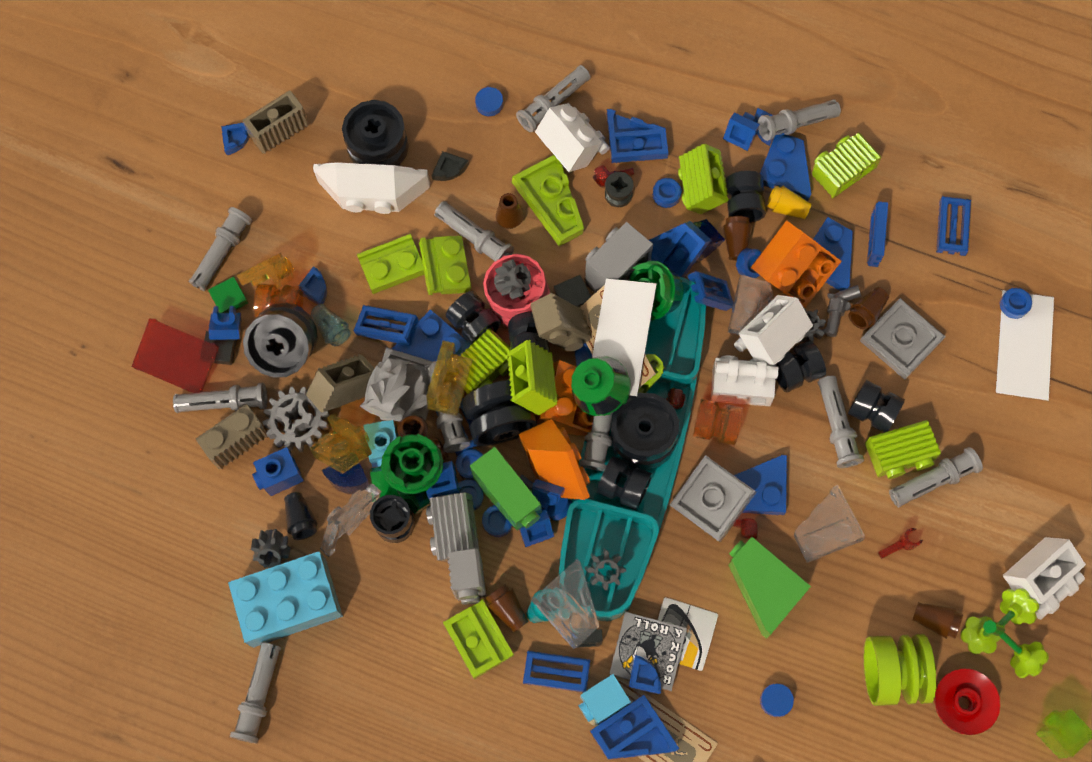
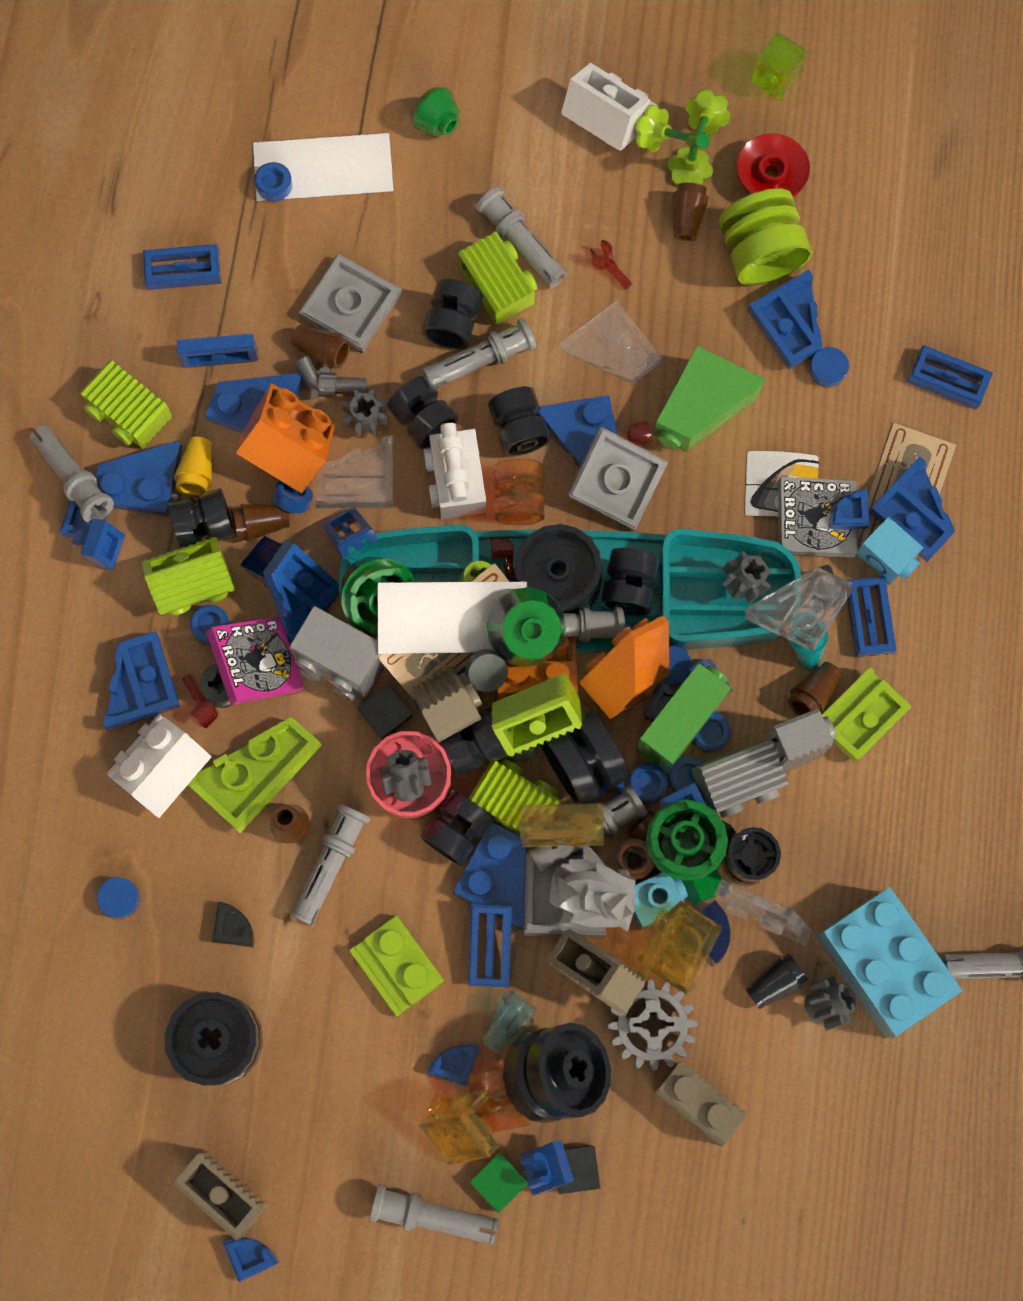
camera: 110 degrees left, 5 degrees up
(175, 356) = (606, 1226): clear red piece -> none
(233, 398) = (644, 1120): light grey pin -> none
(277, 472) = (729, 1028): blue brick -> none
(372, 185) = (293, 1026): white wedge -> none
(445, 265) = (384, 890): lime plate -> none
(542, 104) = (112, 816): light grey pin -> none
(547, 493) = (669, 669): blue tile -> none
(575, 351) = (486, 670): none -> pearl dark grey tile
(631, 203) = (255, 660): none -> tile
(775, 330) = (392, 441): white brick -> none
(776, 435) = (519, 421): none -> black wheel
(824, 678) = (790, 320): none -> blue wing
(1059, 435) = (436, 112): none -> green cone

